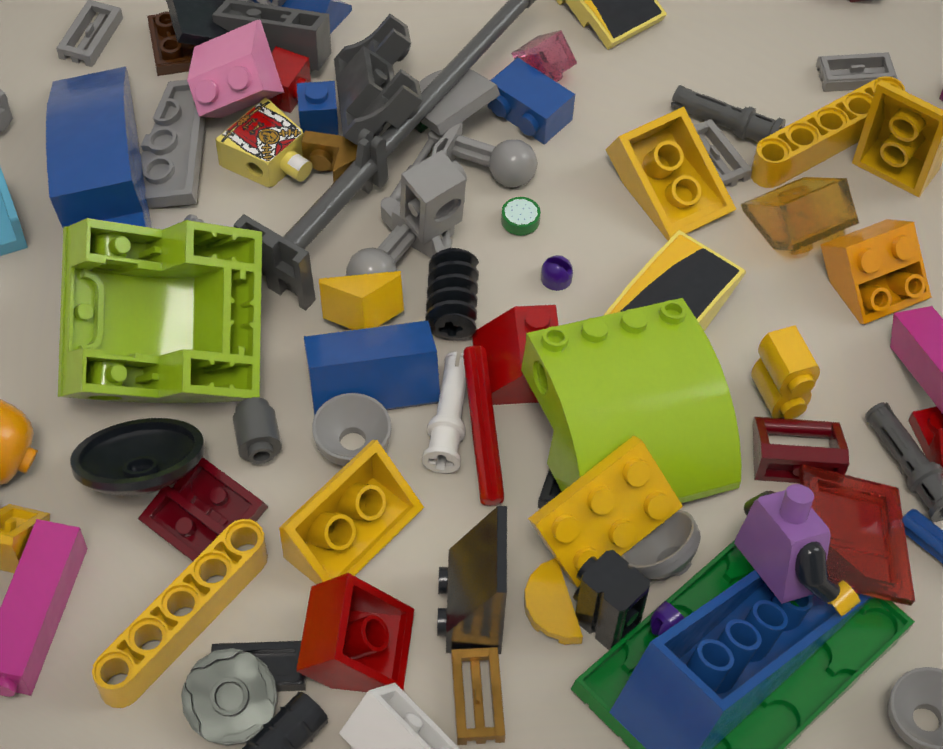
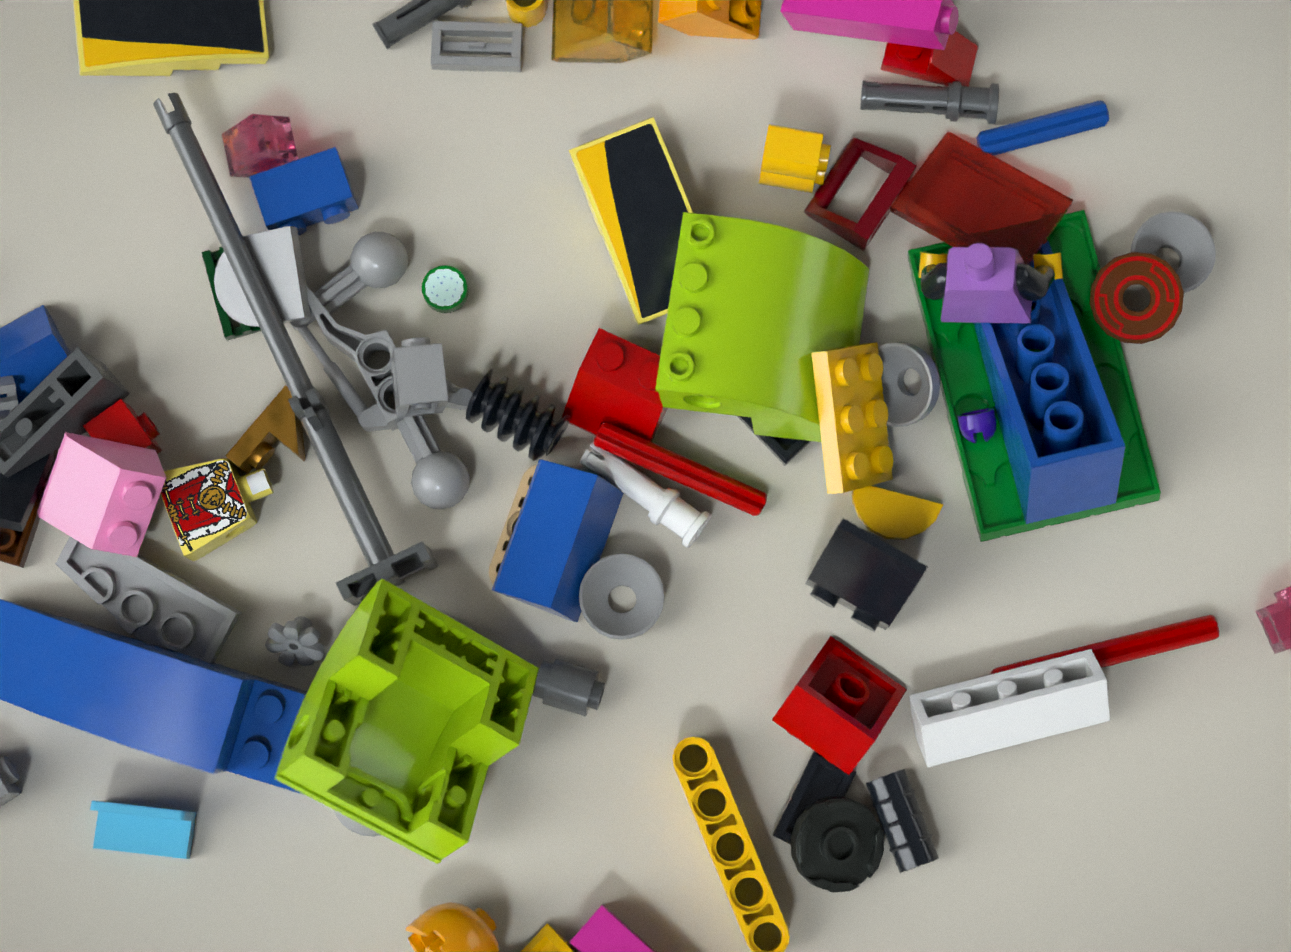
camera: 55 degrees left, 25 degrees up
(137, 456) = (525, 812): black dish -> none
(200, 509) = (627, 779): dark red slope -> none
(318, 107) = (194, 425): blue brick -> none
(349, 517) = (720, 646): yellow slope -> none
(362, 299) = (476, 509): yellow slope -> none
(367, 84) = (204, 360): dark grey bracket -> none
(480, 732) = (955, 610): pearl gold tile -> none
(556, 273) = (541, 301): dark purple hinge -> none
(610, 597) = (935, 463): black brick -> none
(671, 174) = (485, 110): yellow slope -> none
(876, 668) = (1164, 292): none -> reddish brown tile

